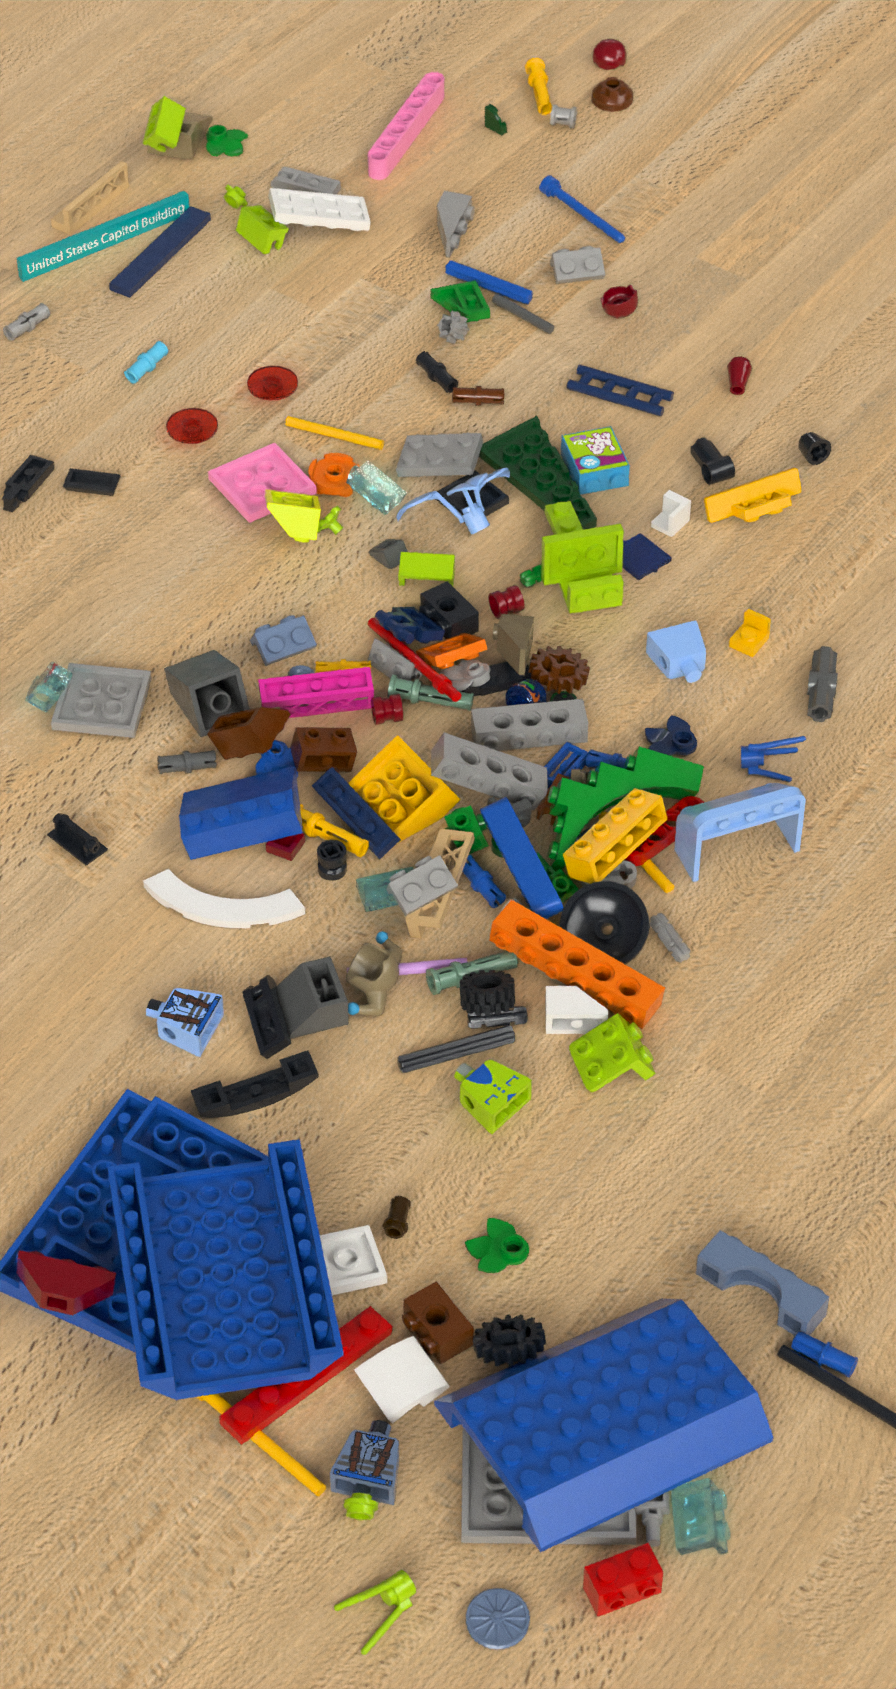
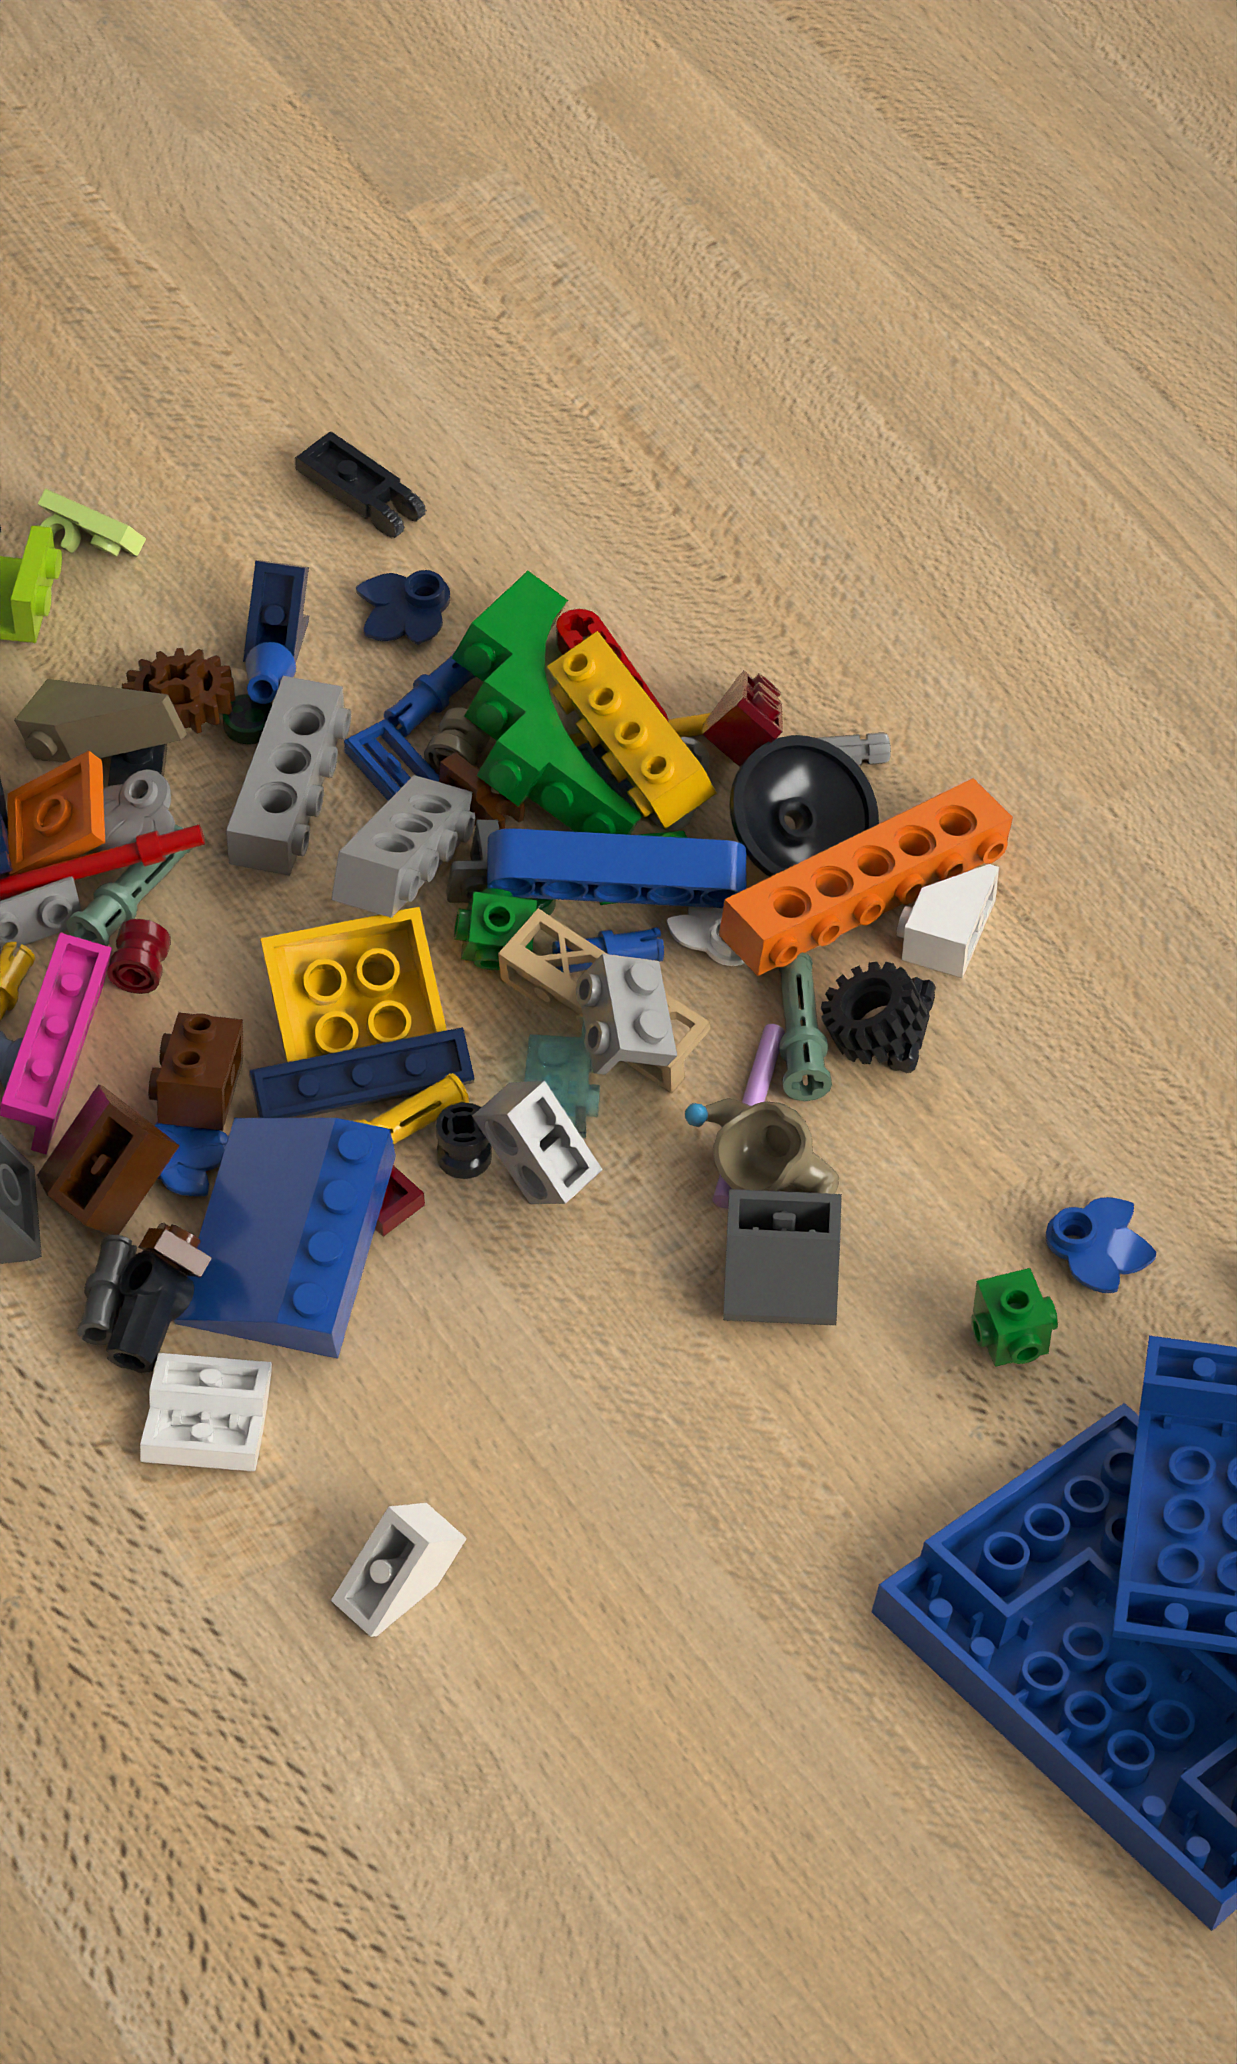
camera: 70 degrees left, 5 degrees up
(73, 910) = (397, 1566): none -> white slope
(75, 839) = (217, 1517): black hinge -> none
(135, 820) = (206, 1412): none -> white slope
(185, 775) = (153, 1299): none -> black piece
(187, 1018) = (741, 1456): light blue torso -> none
(208, 770) = (176, 1248): none -> plate
(222, 911) = (486, 1352): white tile -> none
(258, 1091) = (937, 1395): black slope -> none
(266, 1017) = (787, 1337): black plate -> none
(315, 1101) = (1013, 1318): none -> green brick
(330, 879) = (537, 1142): none -> light grey brick
(392, 1135) = (1104, 1244): none -> blue plate
(456, 1049) = (957, 1101): black axle -> none
(492, 1092) = (1081, 1077): lime torso -> none
(525, 692) = (219, 754): clear blue head -> none
(594, 696) = (265, 669): none -> blue cone
(610, 1052) = (1061, 902): lime bracket -> none
(628, 690) = (277, 606): none -> dark blue slope
(652, 603) = (107, 532): none -> yellowish green plate
(661, 884) = (745, 717): none -> dark red slope
(678, 651) = (222, 527): light blue torso -> none
(735, 813) = (683, 572): light blue windscreen -> none
(744, 693) = (359, 483): none -> black hinge
(751, 633) = (224, 429): yellow bracket -> none
(753, 756) = (507, 514): blue plant -> none
(822, 684) = (391, 380): dark grey piece -> none

